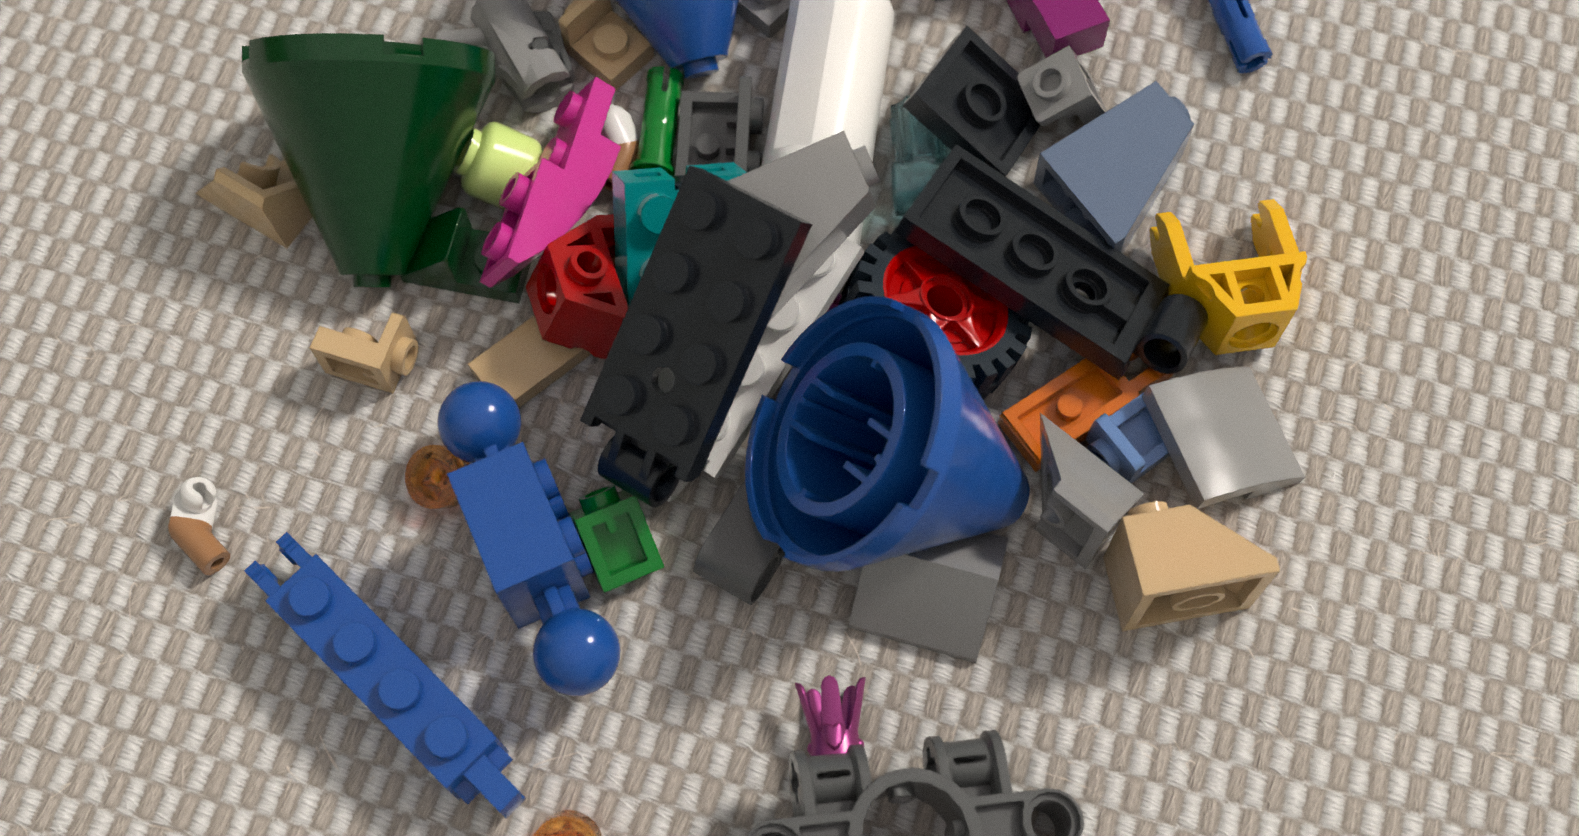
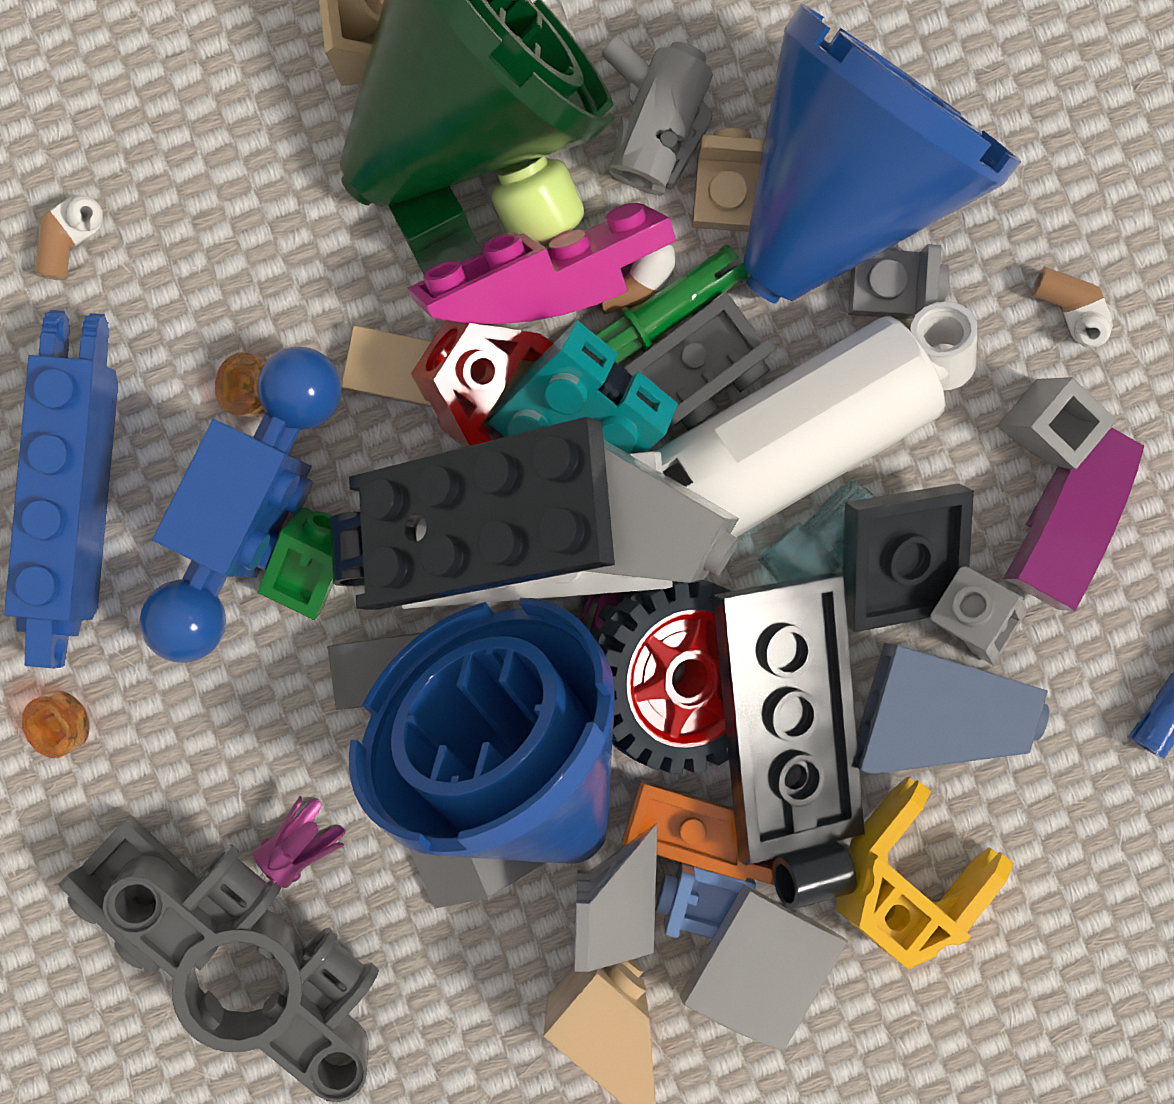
camera: 50 degrees right, 20 degrees up
(363, 359) = (287, 234): tan bracket -> none

